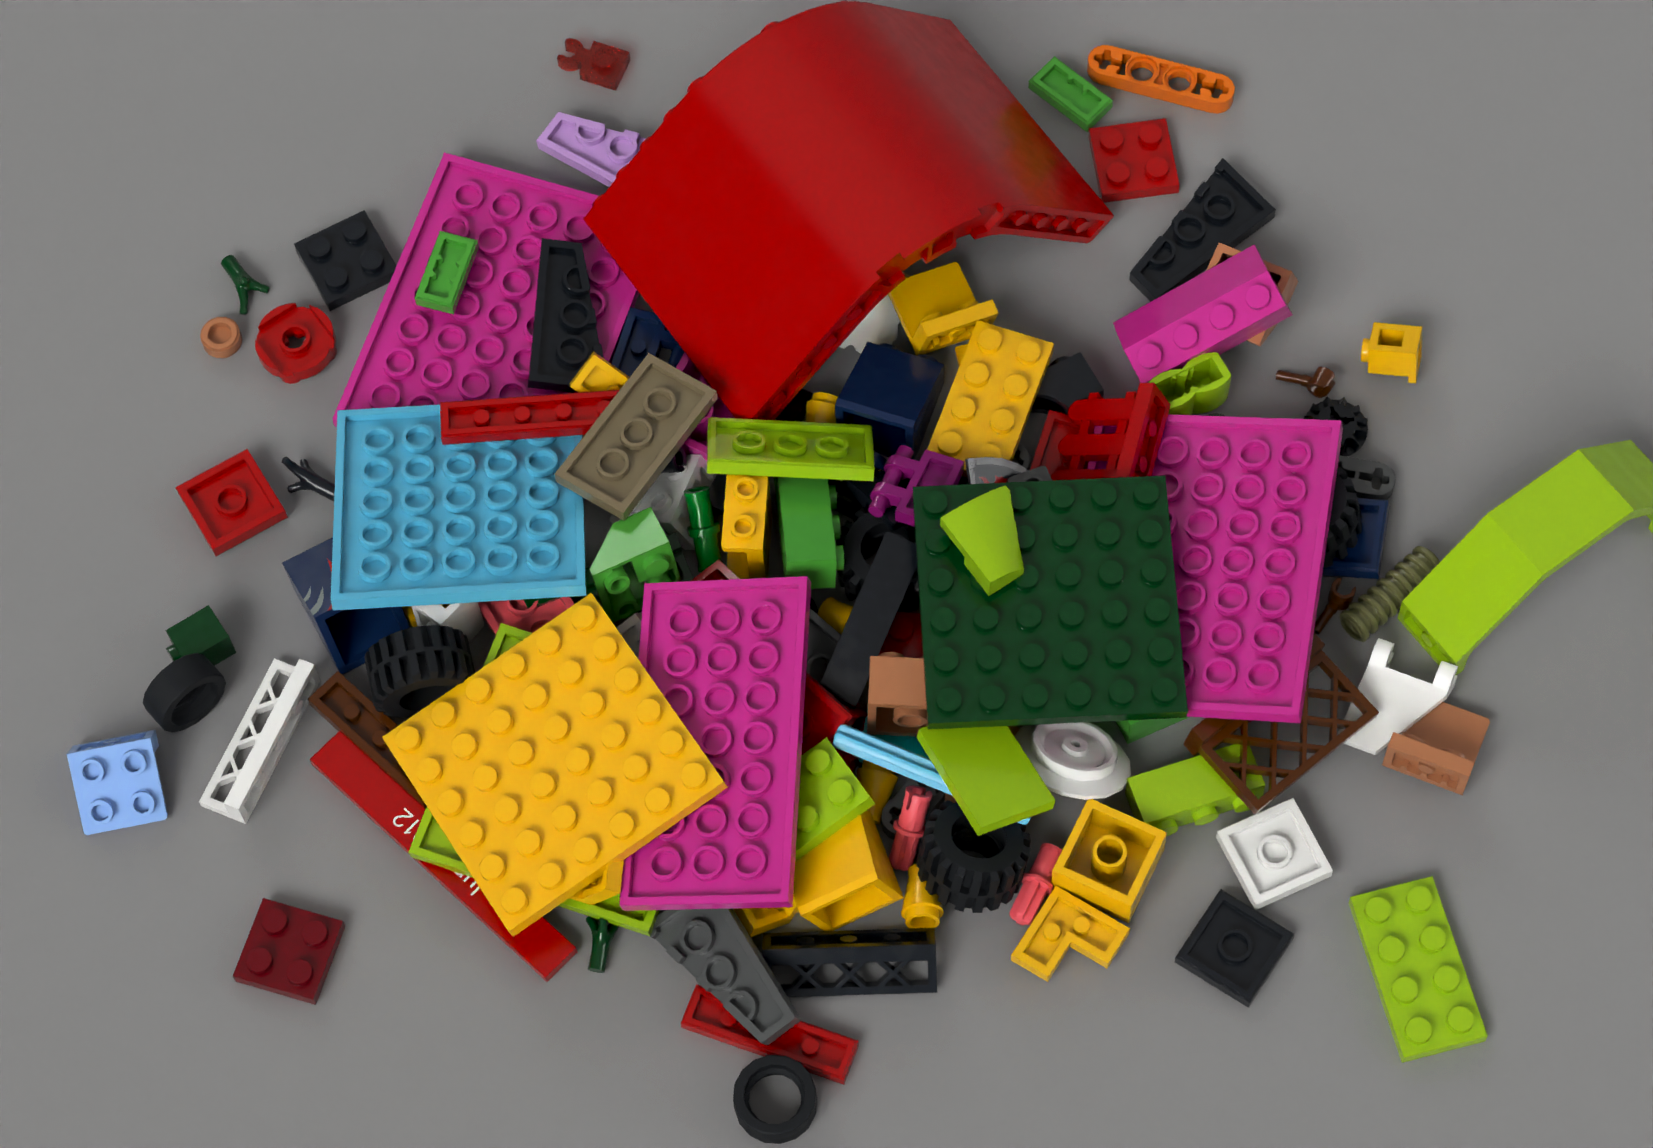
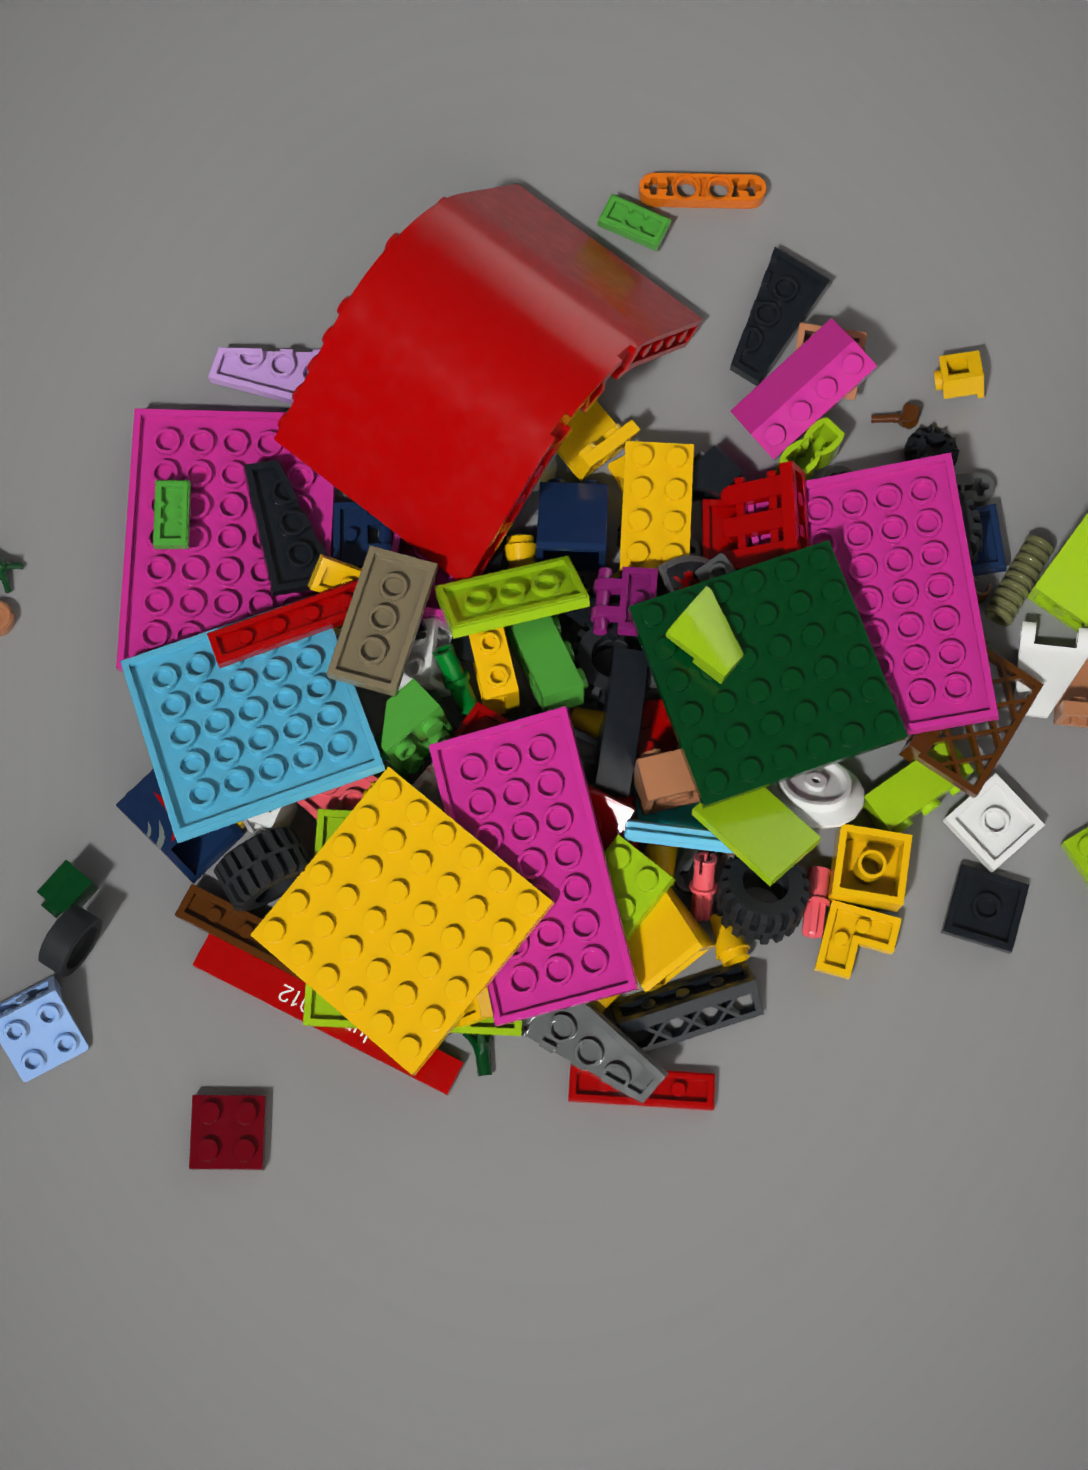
camera: 20 degrees left, 10 degrees up
(231, 502) = (53, 761): red plate -> none
(268, 744) = (156, 957): white fence -> none
(298, 362) = (65, 625): red plate -> none
(308, 479) = (113, 723): black bar -> none
(346, 260) = (81, 522): black plate -> none
(599, 65) = (238, 295): clear red plate -> none
(765, 1067) = (691, 1134): black tyre -> none
(1133, 160) = (701, 266): red plate -> none

